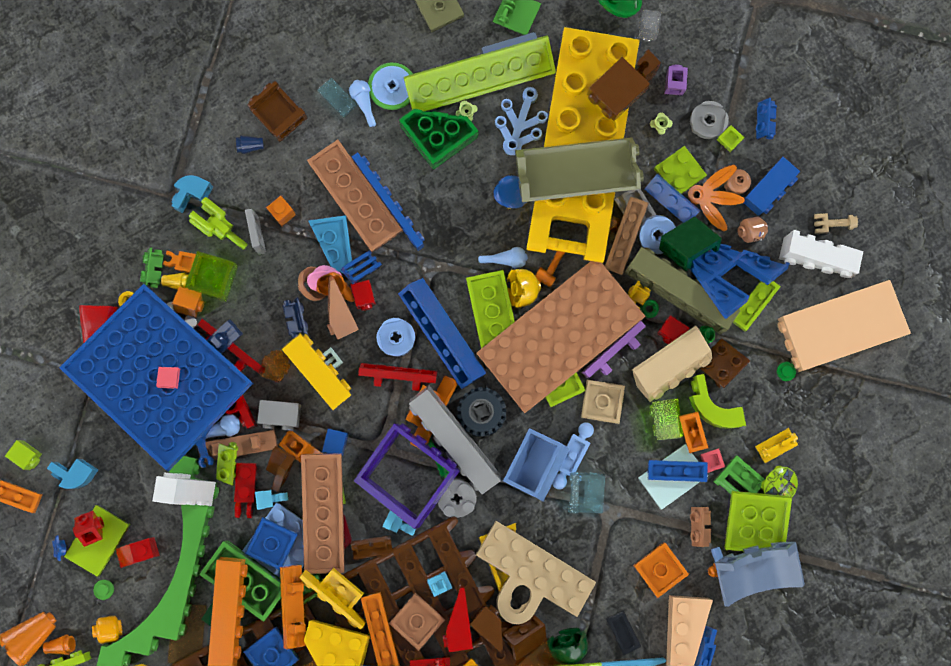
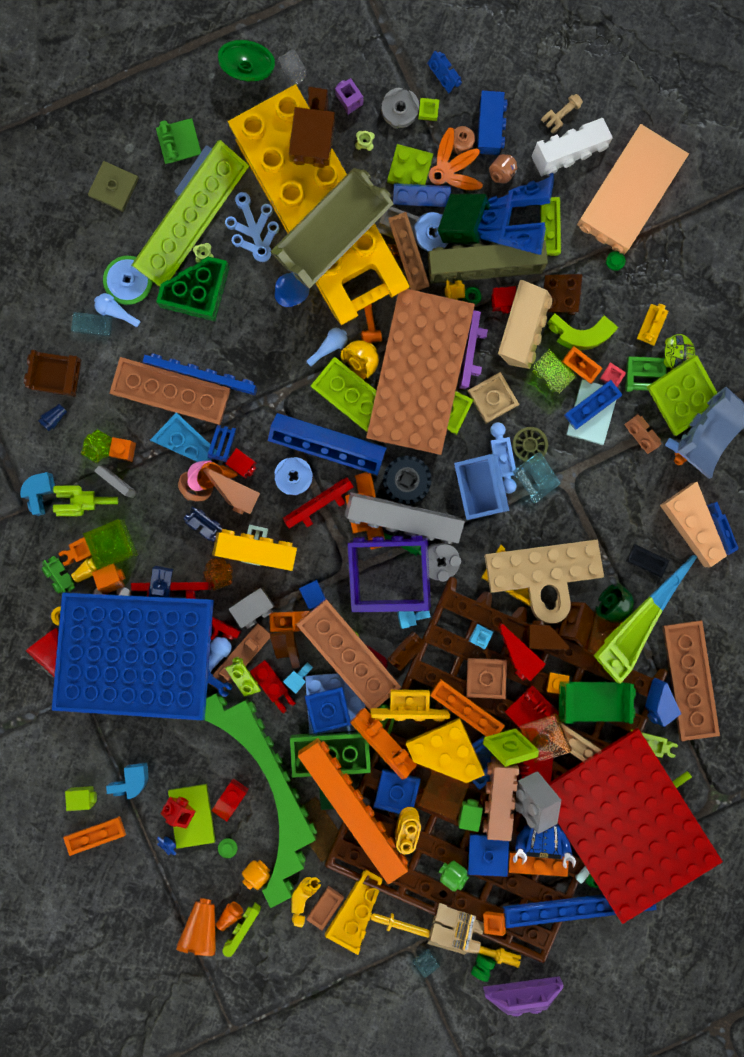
camera: 35 degrees left, 5 degrees up
(168, 377) = (144, 649): coral tile -> none
(181, 490) = (228, 724): white wedge -> none
(263, 192) = (96, 446): none -> clear neon green brick
(603, 462) = (529, 444): none -> olive wheel
(661, 570) = (639, 490): orange plate -> none
(708, 333) = (532, 278): green plate -> none

